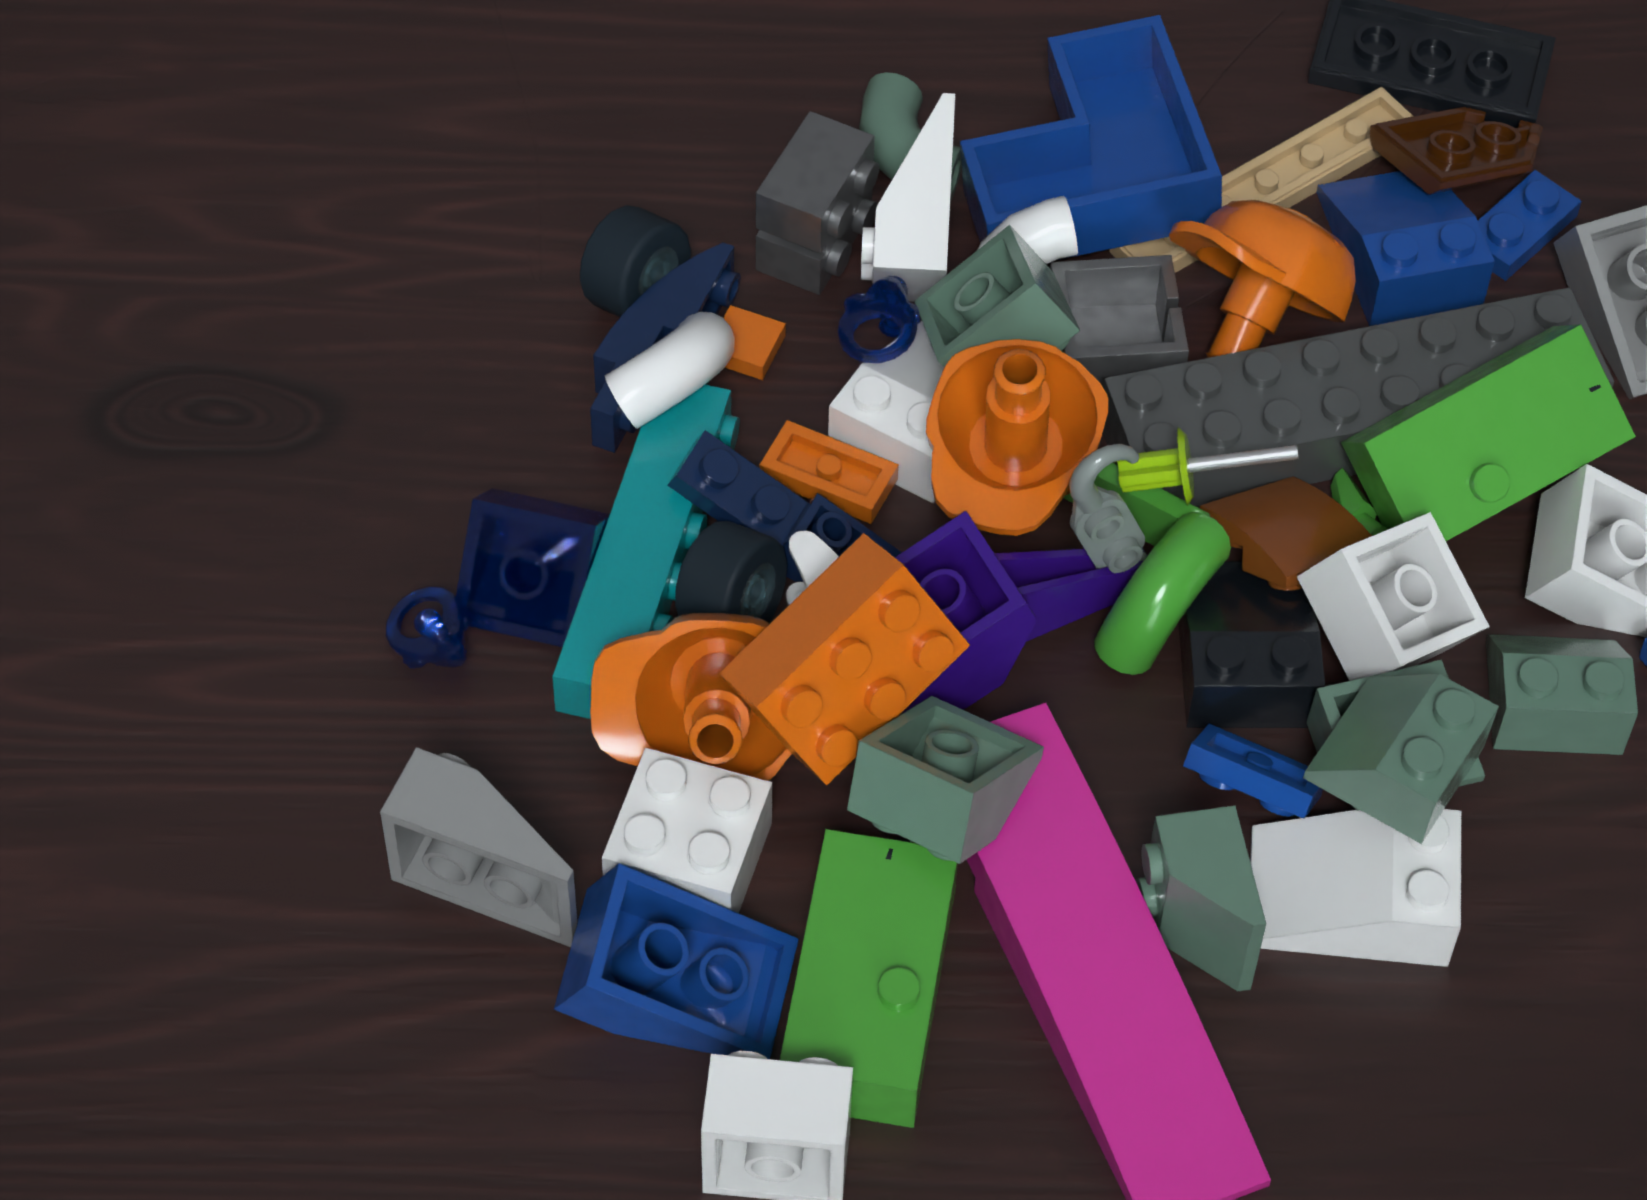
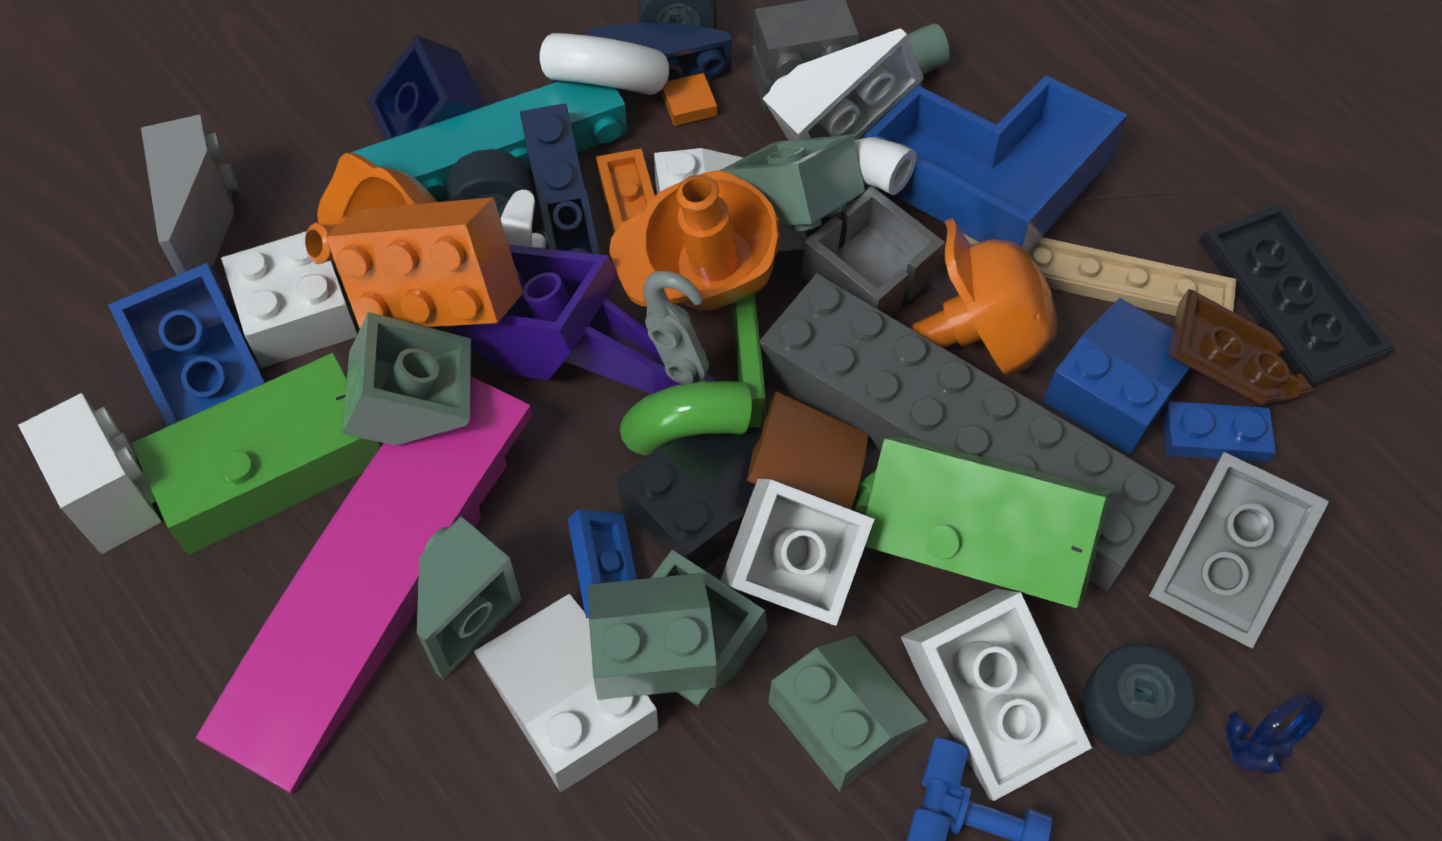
camera: 50 degrees right, 5 degrees up
(443, 636) = (343, 104): clear blue piece -> none
(898, 316) = (757, 125): clear blue piece -> none
(1176, 466) = (774, 352): lime piece -> none

